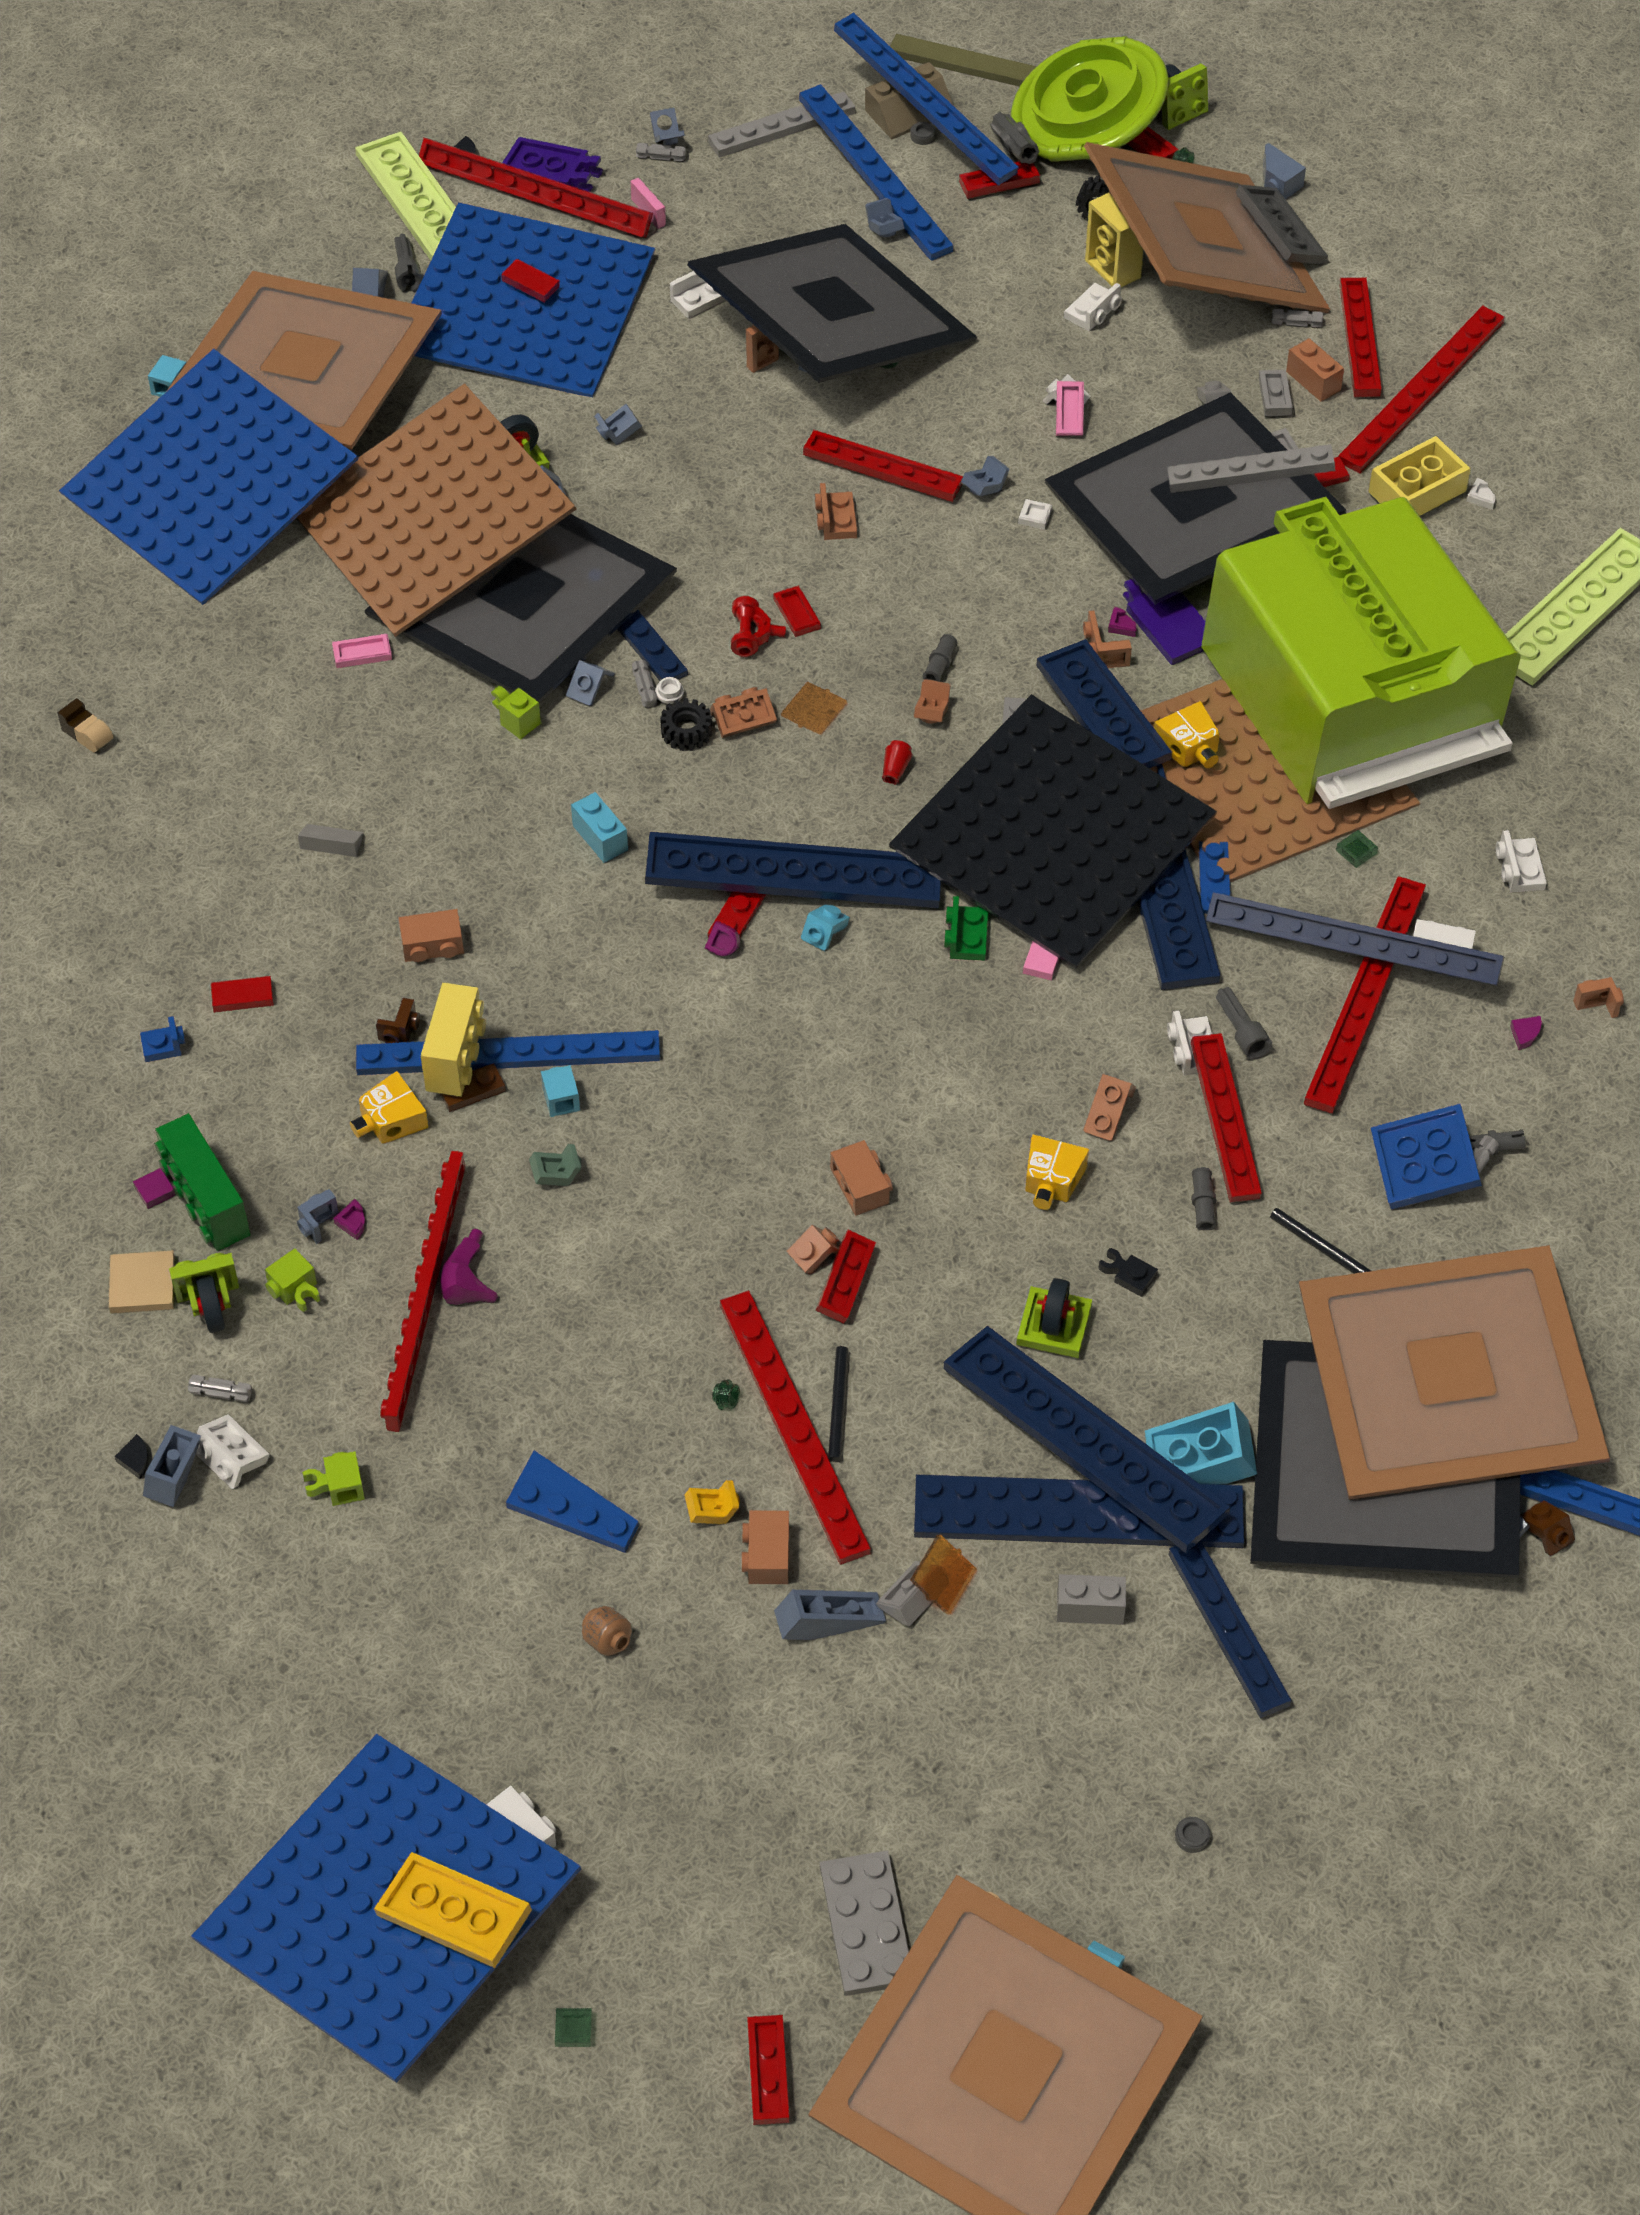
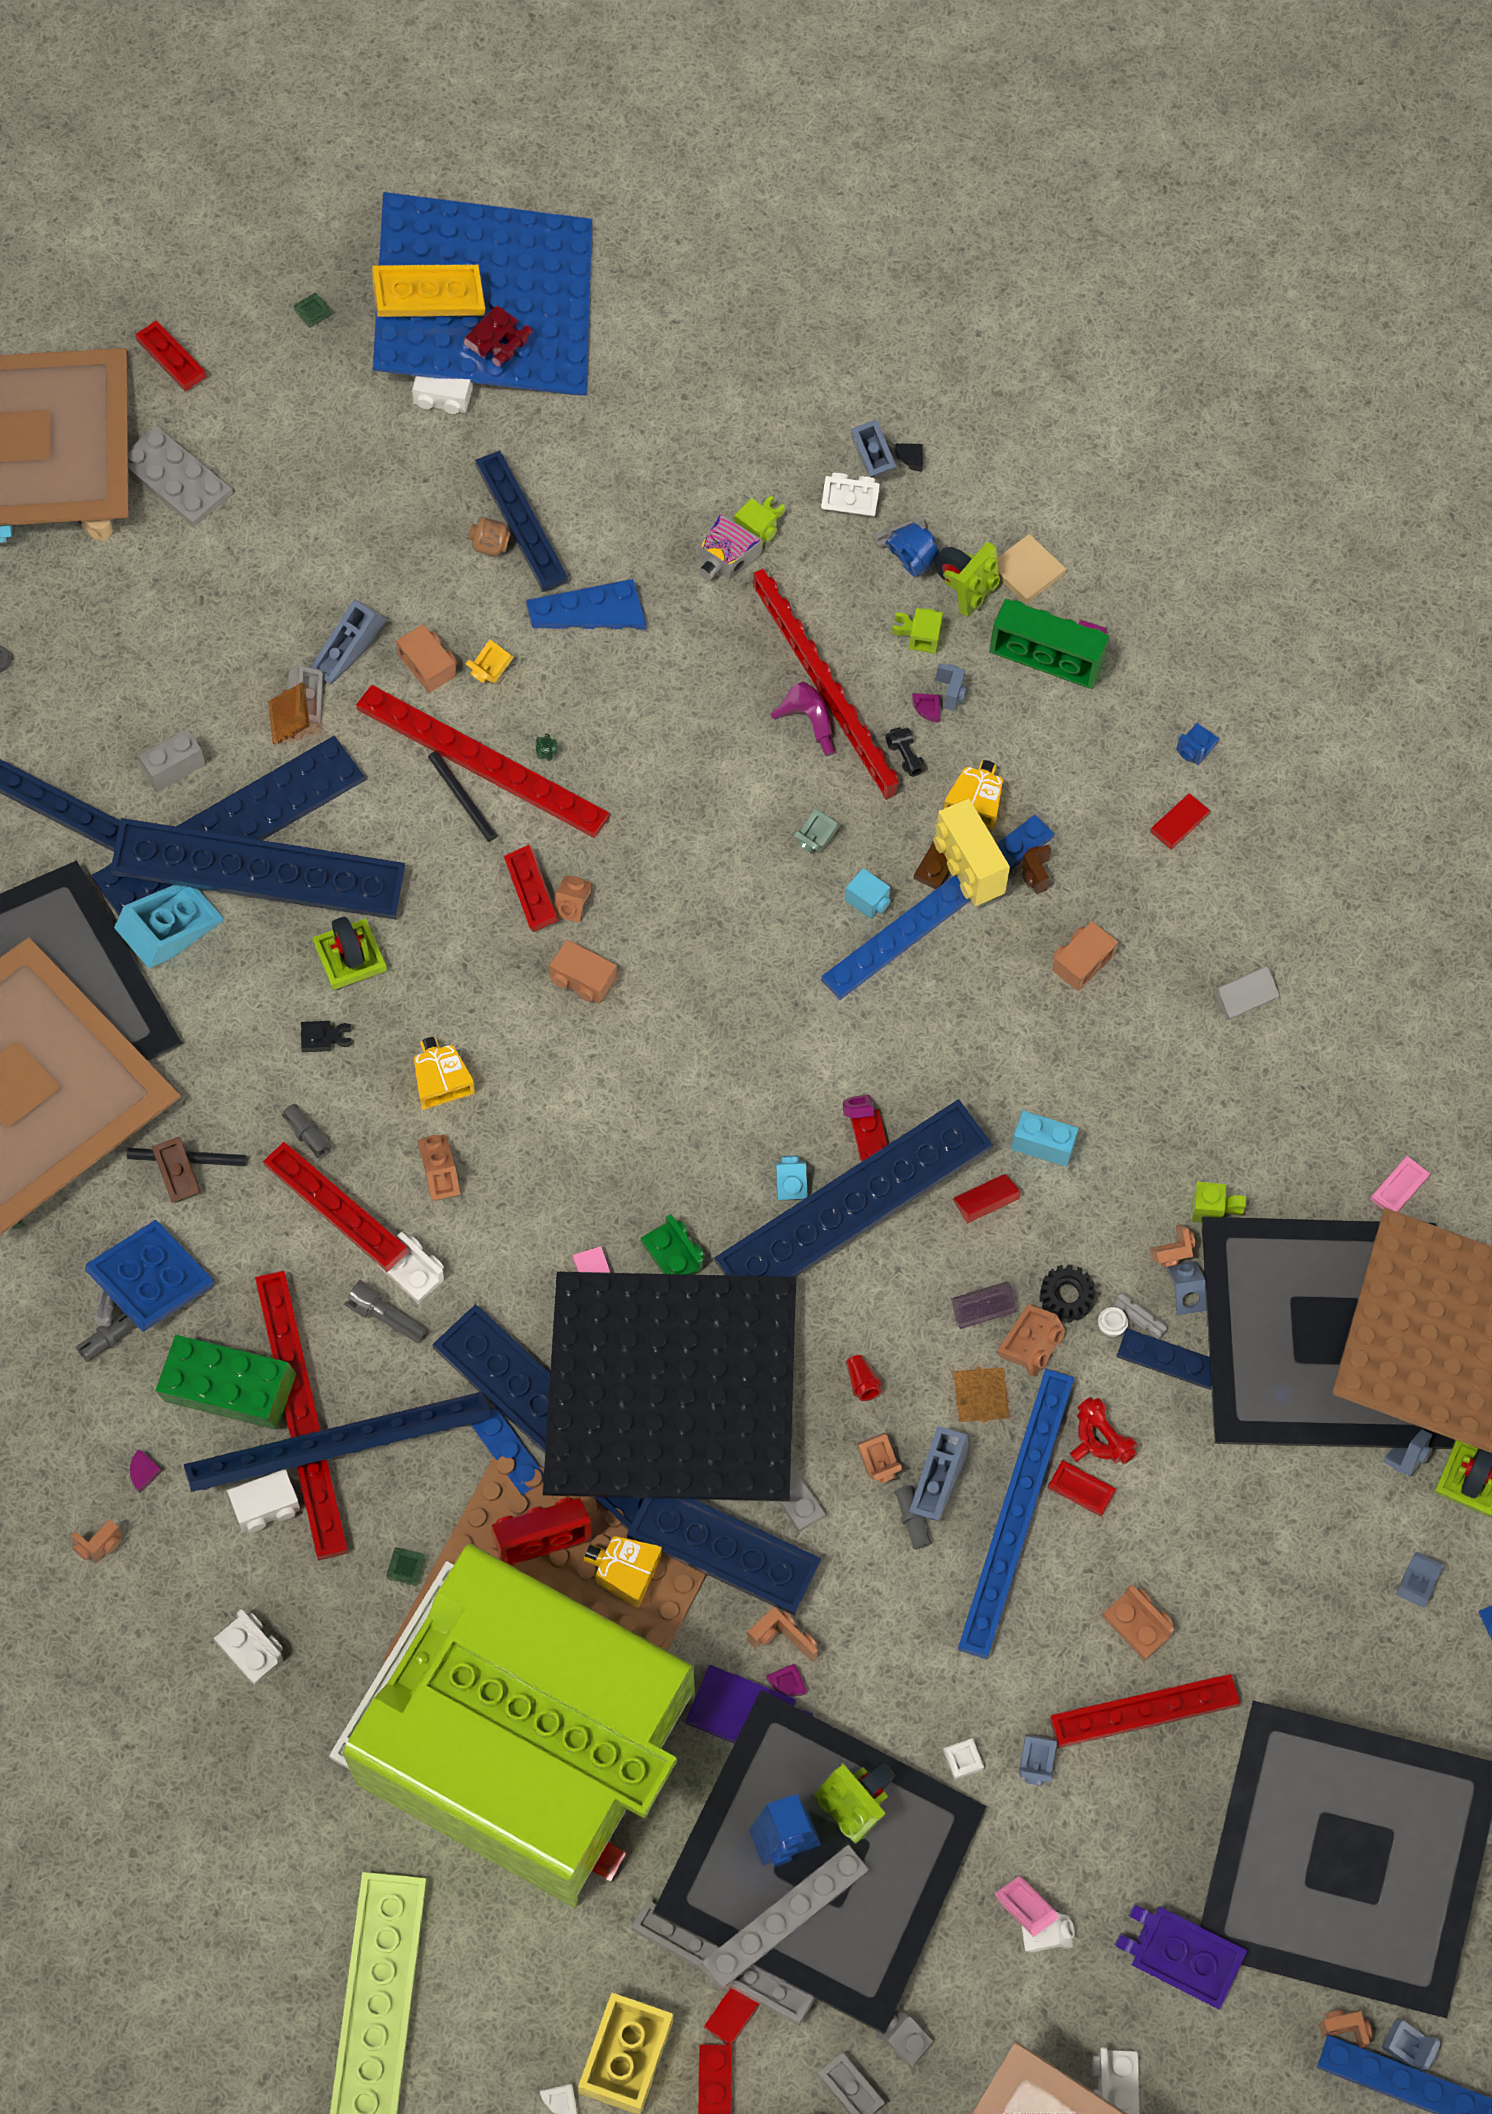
camera: 140 degrees right, 10 degrees up
(230, 1344) = (913, 547): none -> blue cone
(395, 1469) = (727, 549): none -> light grey torso
(408, 1202) = (901, 739): none -> black bar
(424, 1833) = (492, 330): none -> dark red plate
(559, 1633) = (521, 521): none -> dark blue plate
(577, 702) = (1171, 1253): none -> nougat bracket
(682, 819) = (987, 1198): none -> red slope
(768, 756) = (983, 1305): none -> clear purple plate
(859, 620) = (1015, 1514): none -> blue plate
(895, 663) = (940, 1473): none -> sand blue slope
(916, 250) = (1339, 2022): none -> nougat bracket
(988, 336) = (1183, 1955): none -> dark purple tile
(1137, 495) = (855, 1798): none -> lime plate
(1216, 489) = (783, 1831): none -> blue wedge
(1239, 783) = (541, 1531): none -> red slope
(1343, 1230) = (176, 1169): none -> reddish brown plate
(1416, 1035) = (226, 1382): none -> green brick

